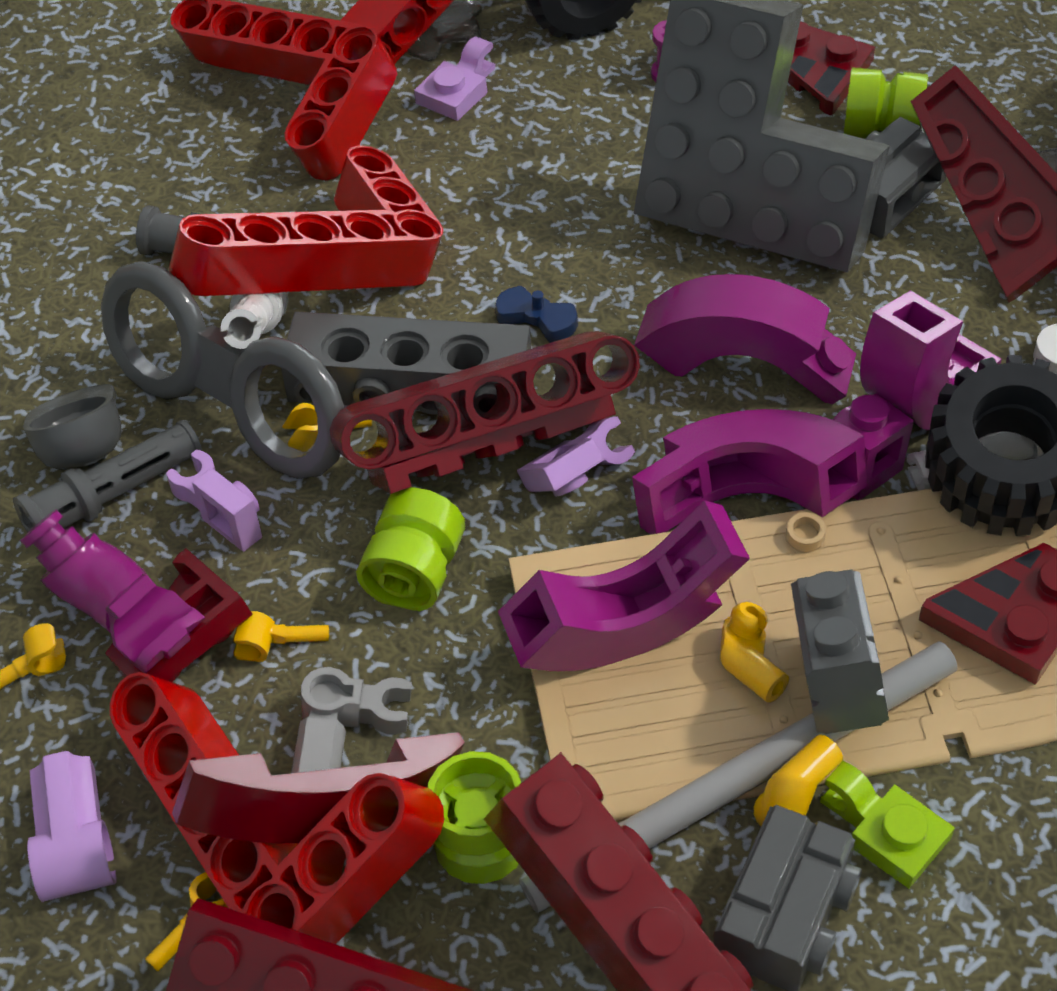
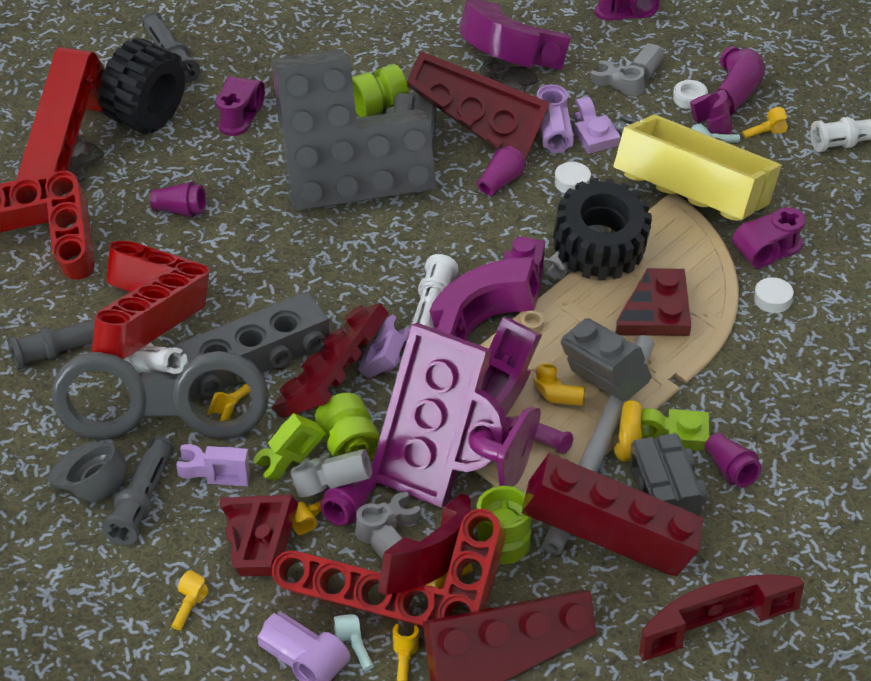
camera: 40 degrees left, 5 degrees down
(113, 591) = (206, 534): magenta piece -> none
(159, 838) = (348, 628): none -> light aqua hand
(319, 522) = (290, 443): none -> lime plate
(320, 593) = (317, 474): none -> light grey bar
(332, 642) = (343, 502): none -> magenta cone
(454, 88) = (115, 189): lavender plate -> none
(503, 633) = (438, 416): none -> plate
(514, 134) = (180, 199): none -> magenta cone
(515, 400) = (331, 334): dark red beam -> none
(553, 319) = (274, 290): dark blue piece -> none
(744, 391) = (433, 284): none -> white pin
(751, 319) = (413, 233): magenta arch -> none
(914, 353) = (527, 207): magenta arch -> none
(924, 936) = (736, 463): none -> magenta cone
(969, 289) = (503, 168): none -> magenta cone

